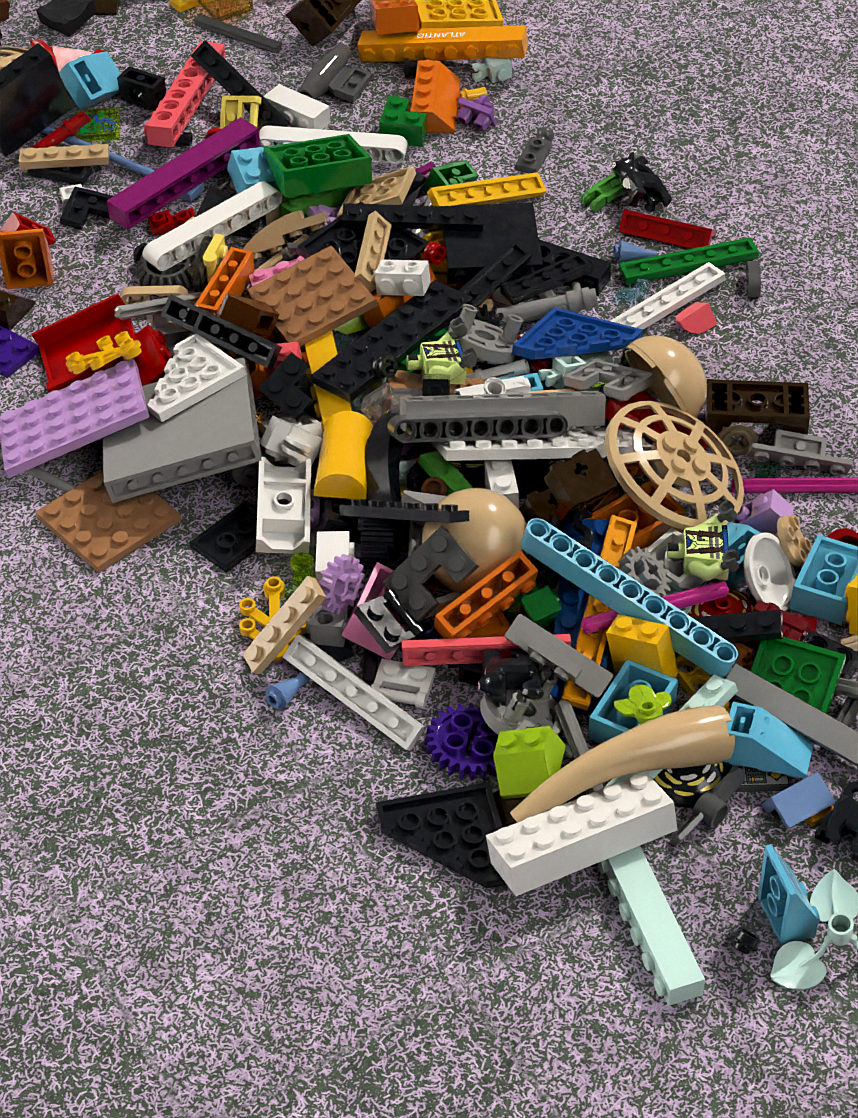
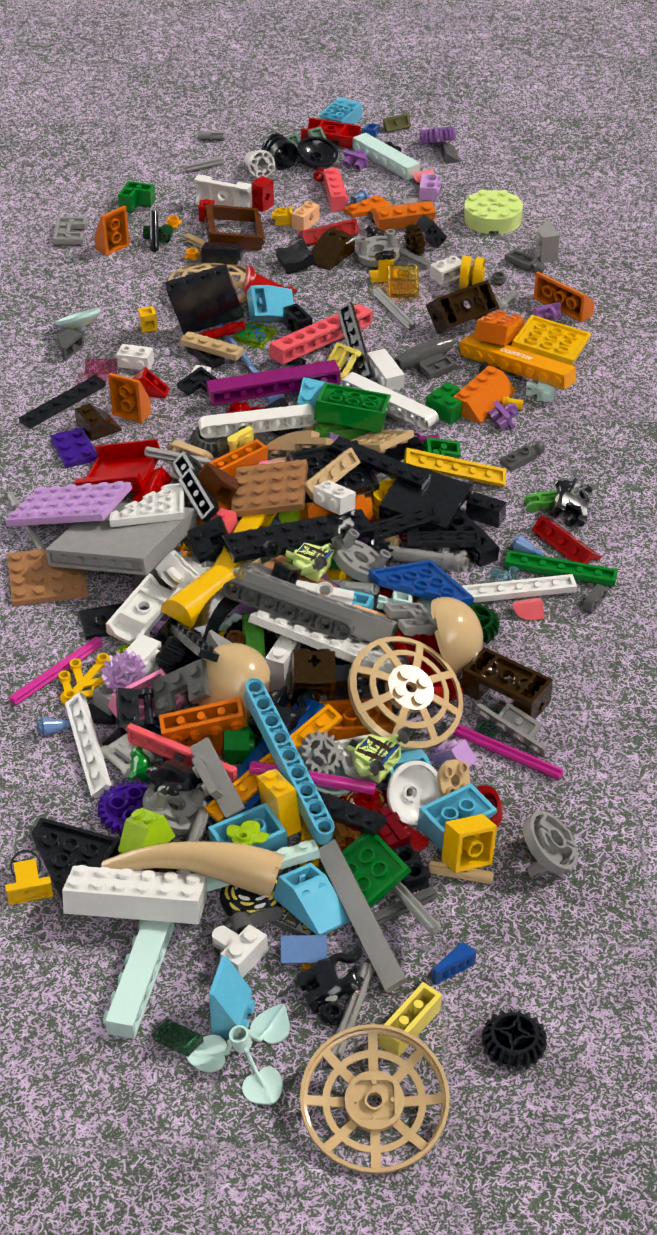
camera: 30 degrees right, 5 degrees down
(128, 350) = (127, 473): yellow plant -> none
(227, 626) = (52, 673): none -> dark pink axle
(284, 625) = (74, 682): tan plate -> none
(434, 253) = (374, 488): red bush -> none
(436, 884) = (28, 884): none -> yellow piece
(439, 686) = (139, 764): none -> green animal
(558, 226) = (486, 509): none -> black brick
(735, 836) = (241, 949): none -> white brick
(737, 446) = (476, 690): dark tan gear -> none
(745, 941) = (187, 1018): black plate -> none
(754, 967) = (177, 1037): none -> clear green tile

